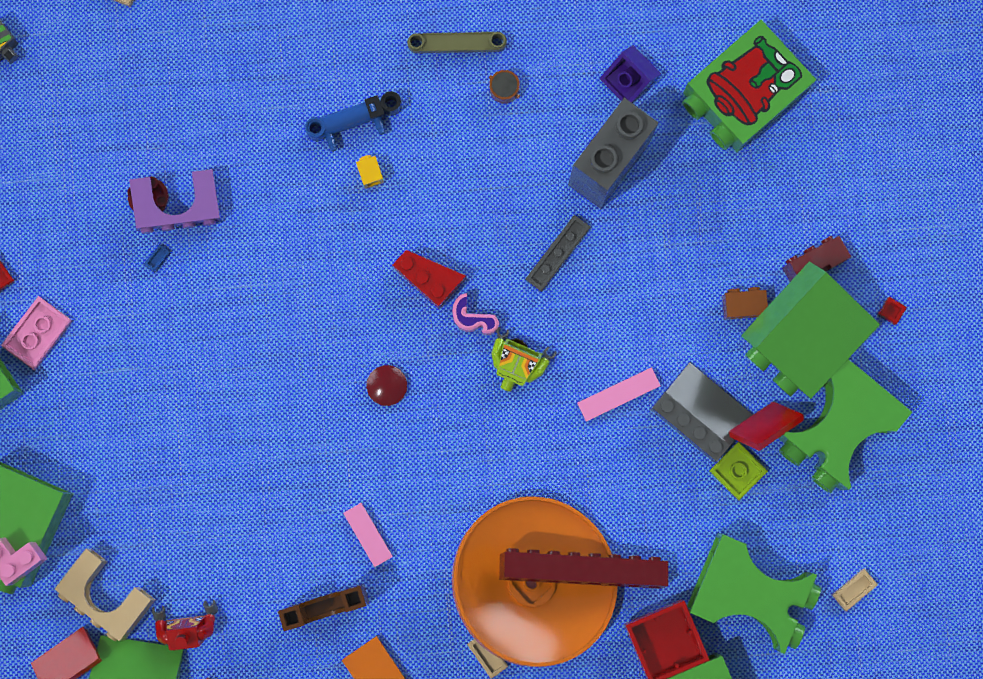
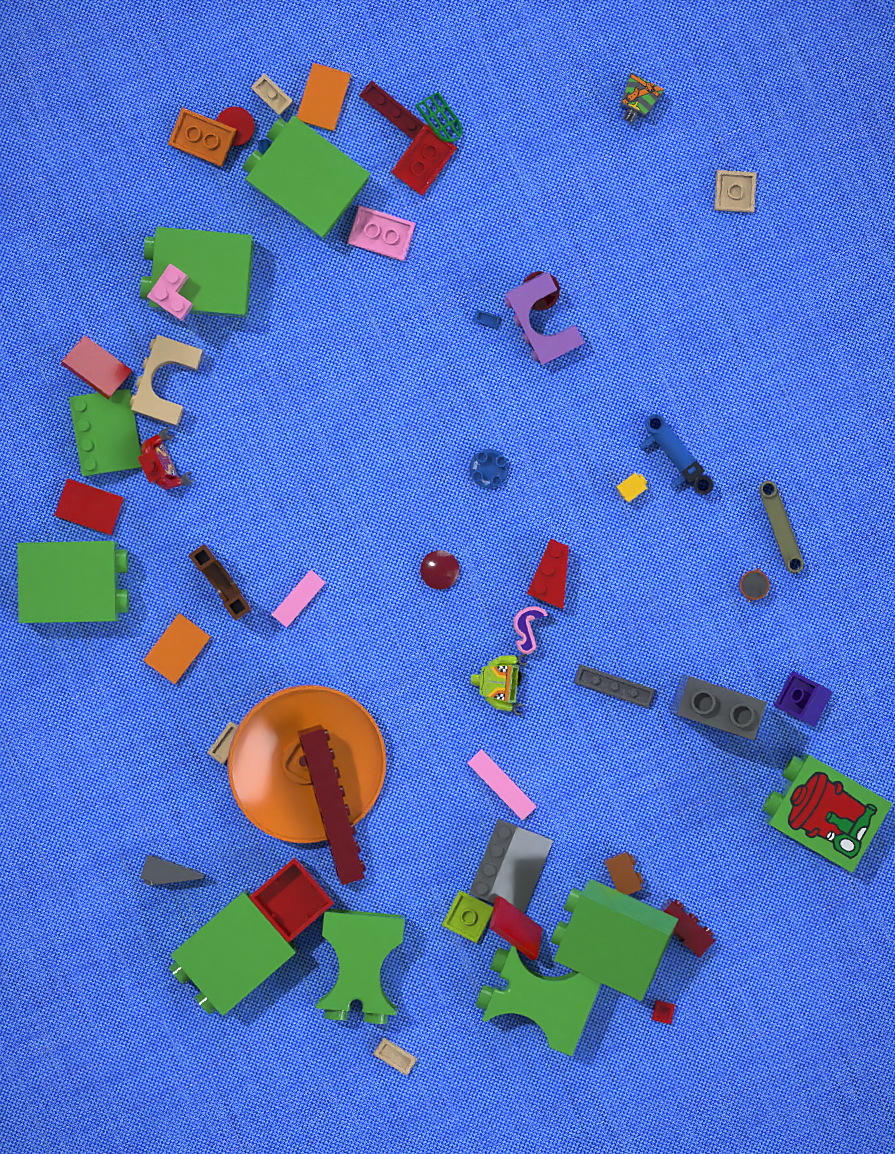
camera: 75 degrees right, 5 degrees up
(303, 304) = (488, 468): none -> blue dish

